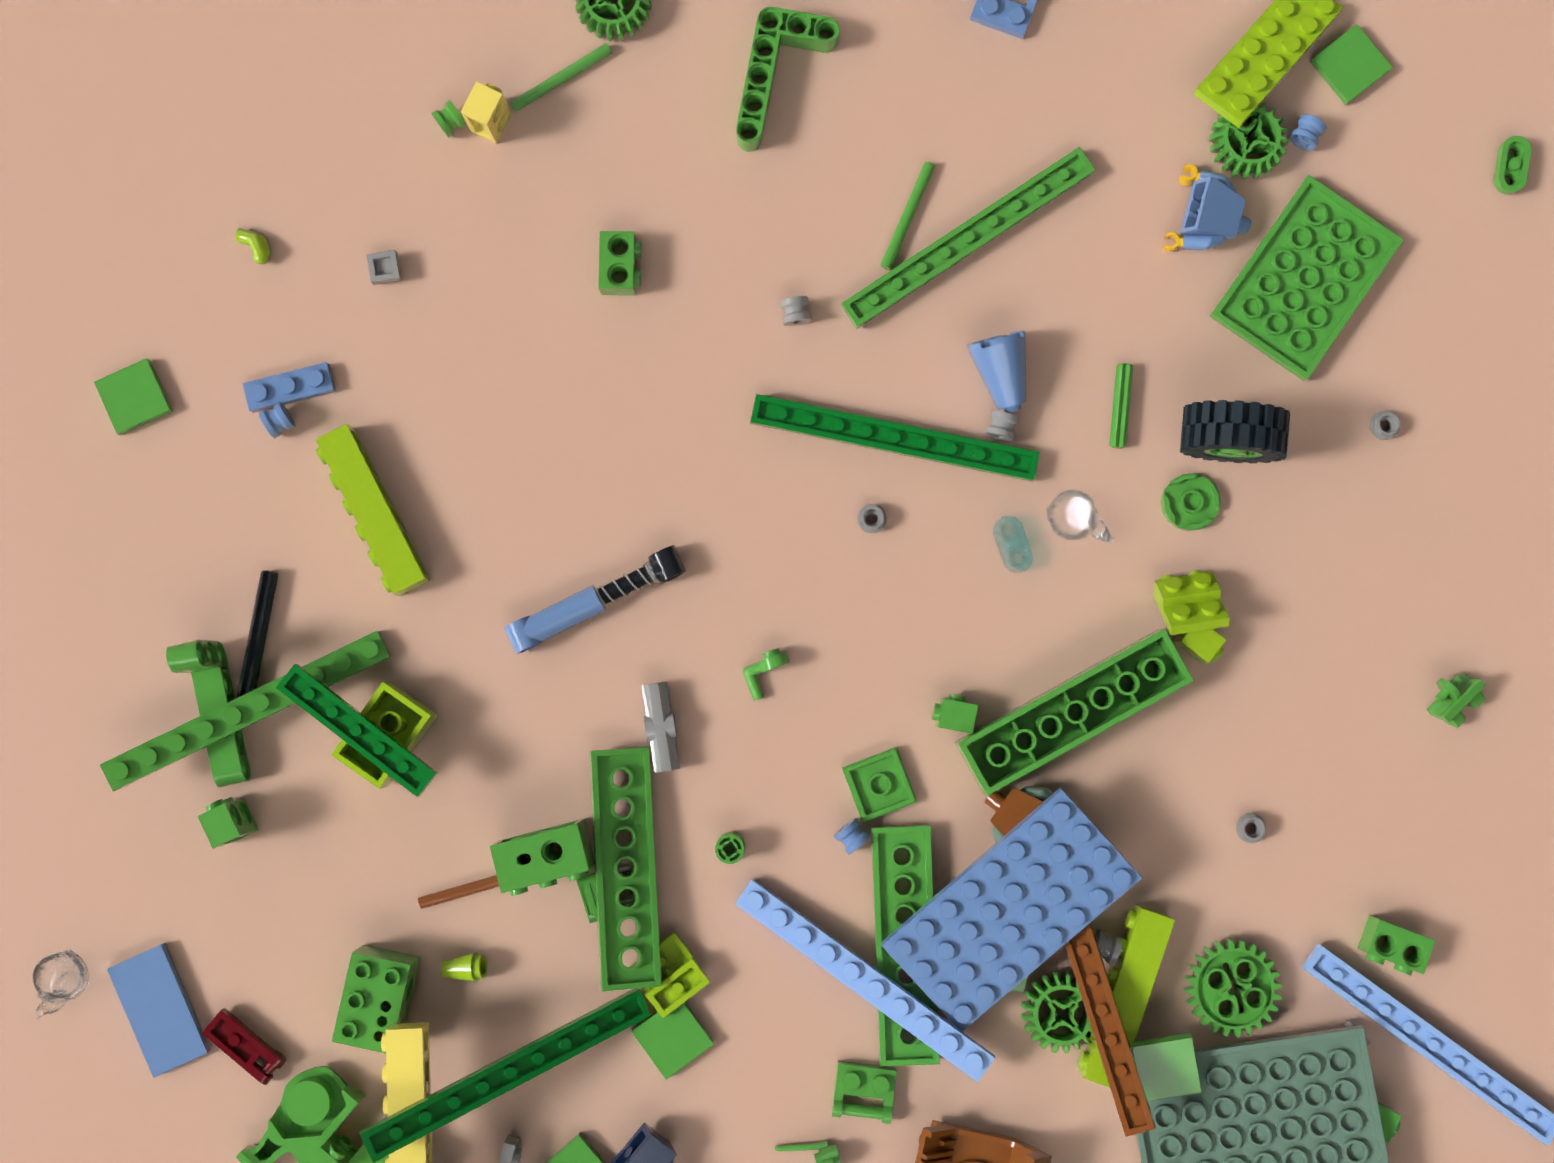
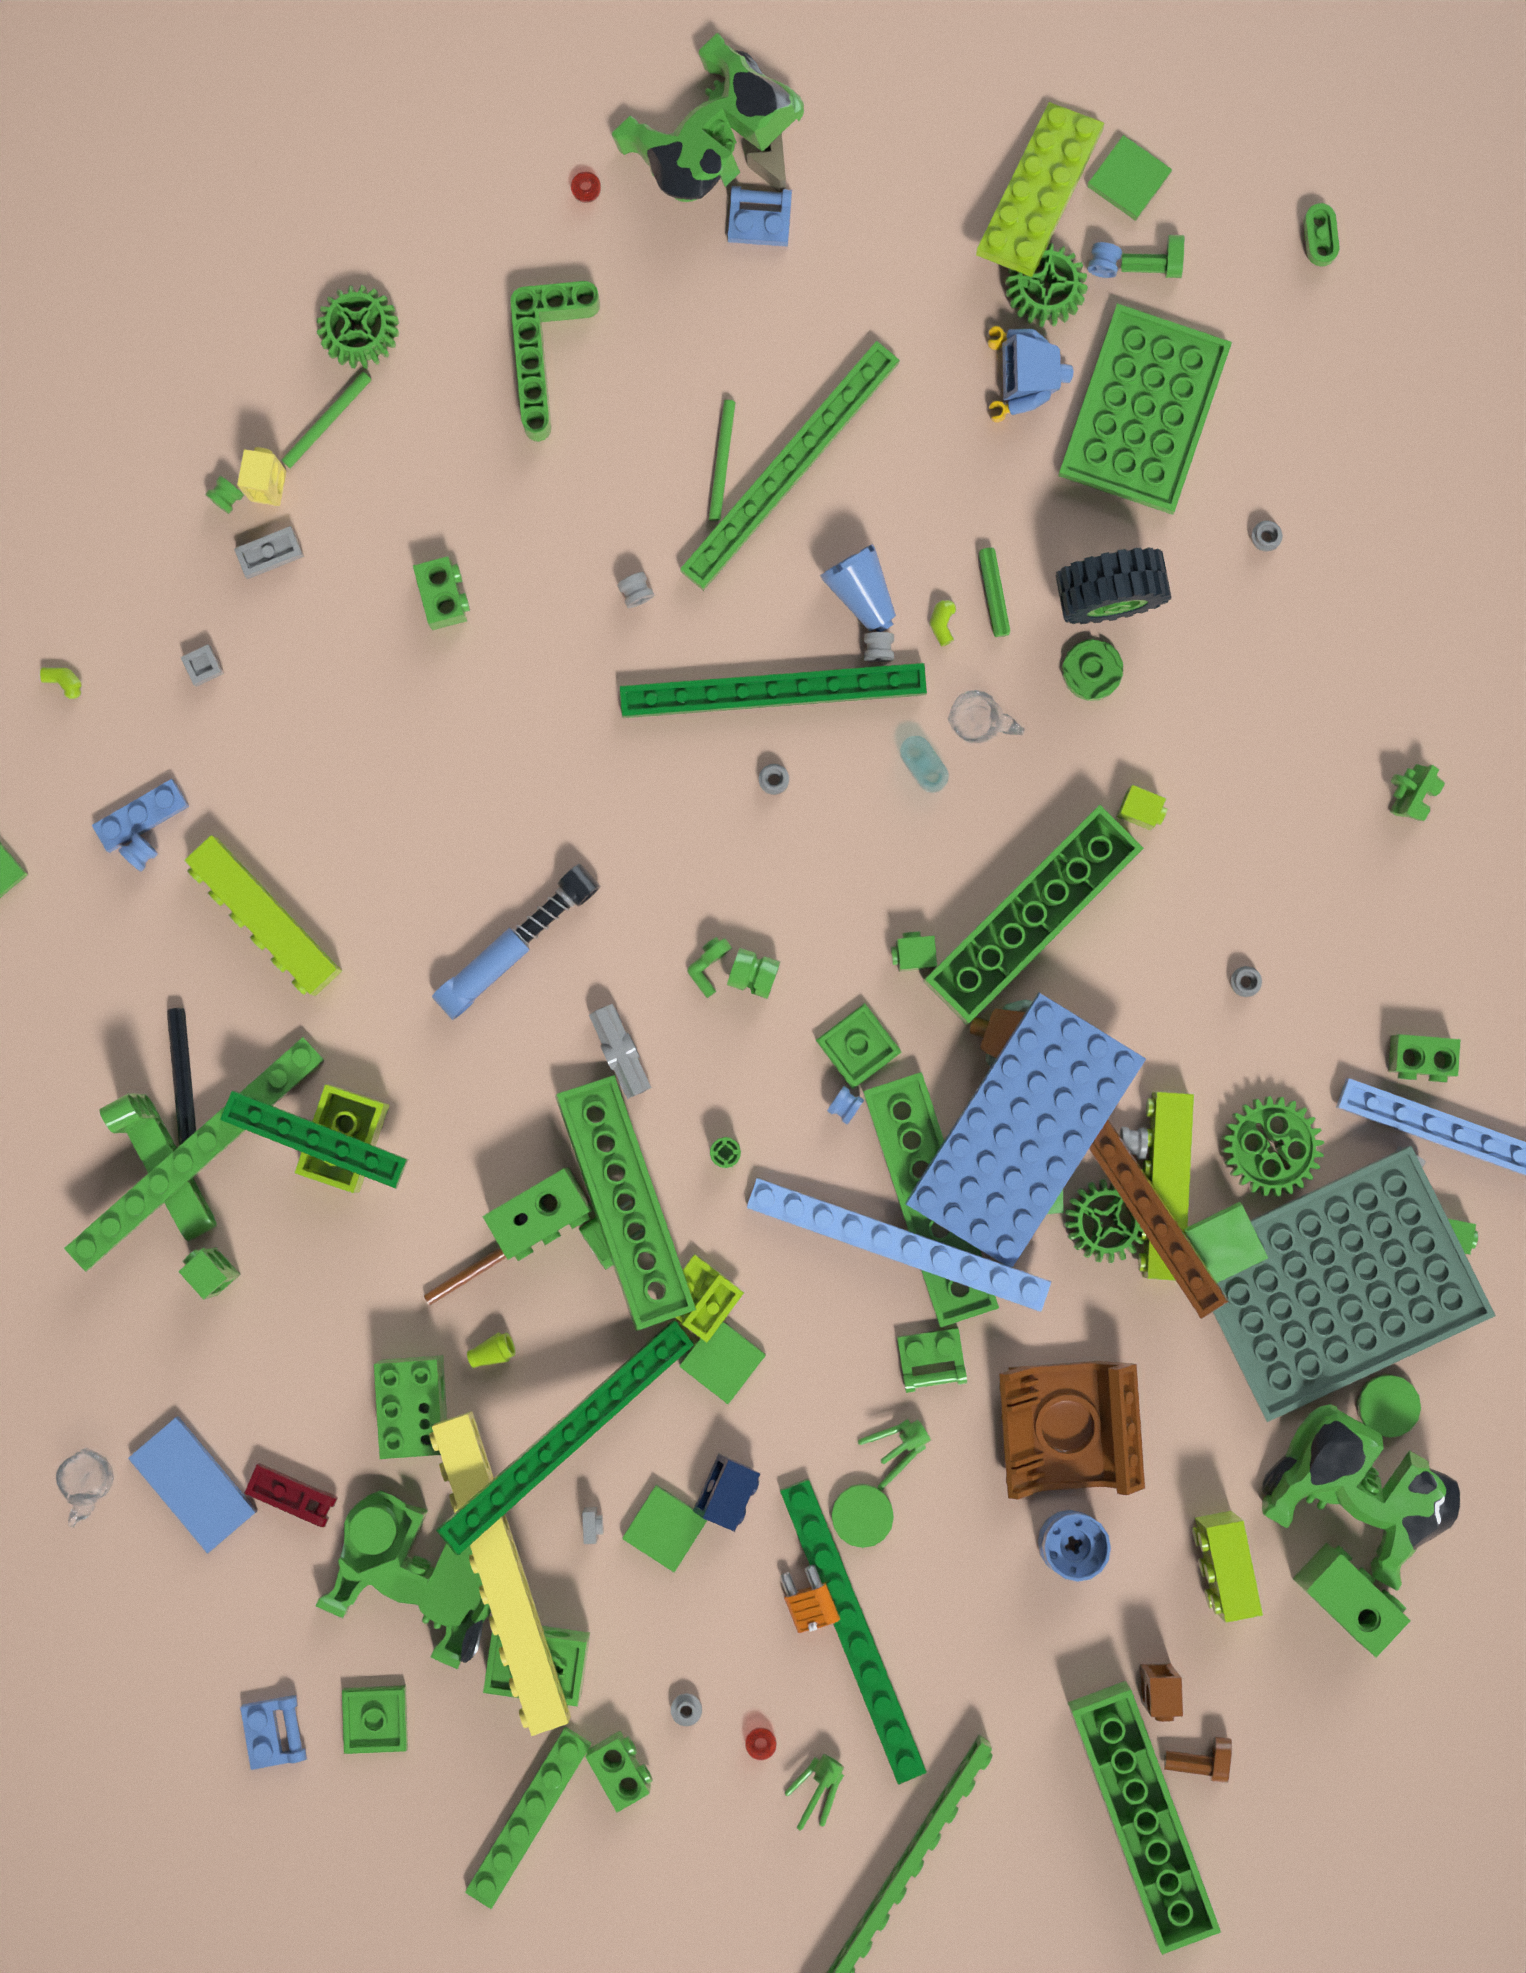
camera: 15 degrees left, 0 degrees up
(474, 182) = (268, 552): none -> light grey plate
(803, 691) = (753, 973): none -> bright green wheel
(1063, 418) = (939, 621): none -> lime arm
(1190, 602) = (1119, 771): lime plate -> none
(1367, 153) = (1158, 263): none -> bright green piece

